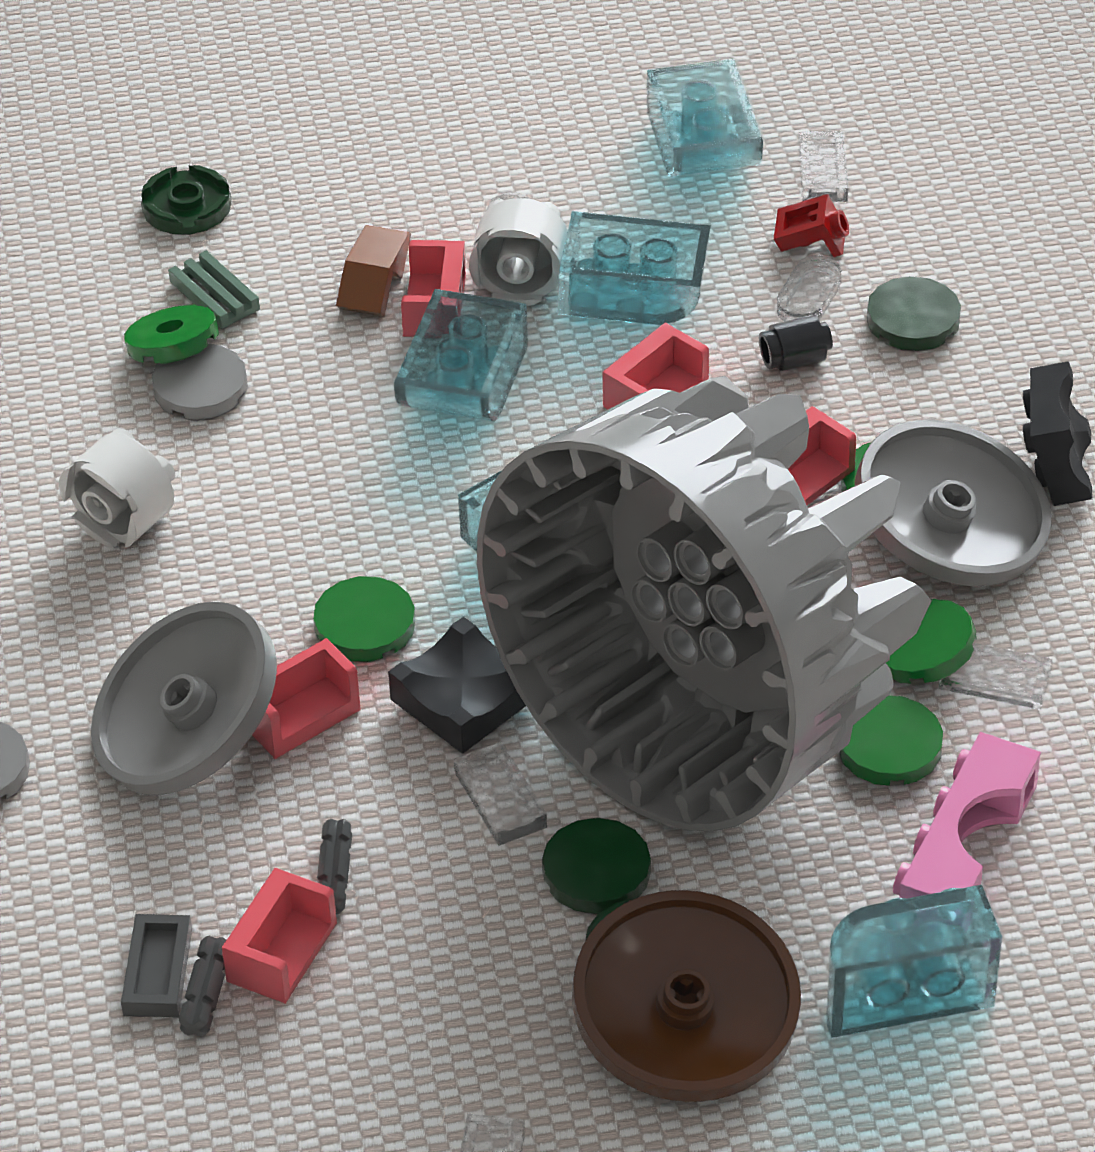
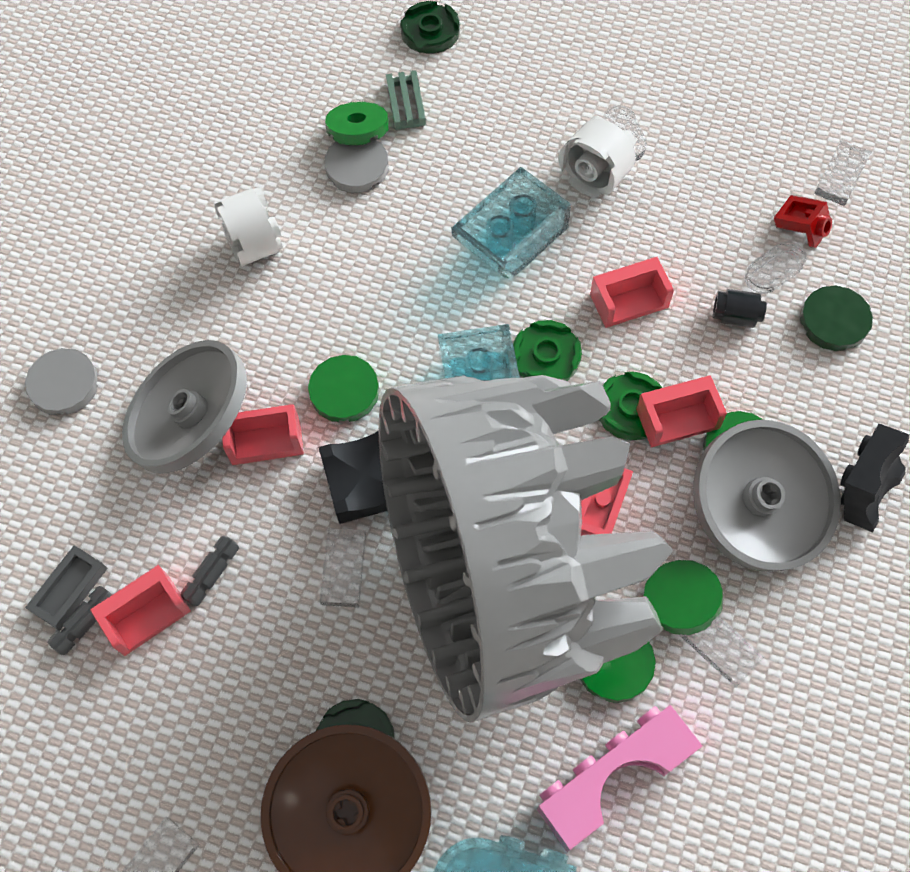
camera: 30 degrees right, 20 degrees up
(369, 269) = (498, 128): dark orange slope -> none
(432, 267) = (539, 153): coral panel -> none
(596, 864) = (366, 659): dark green tile -> none
(631, 268) = (662, 201): clear light blue brick -> none
(702, 118) = (779, 104): clear light blue brick -> none

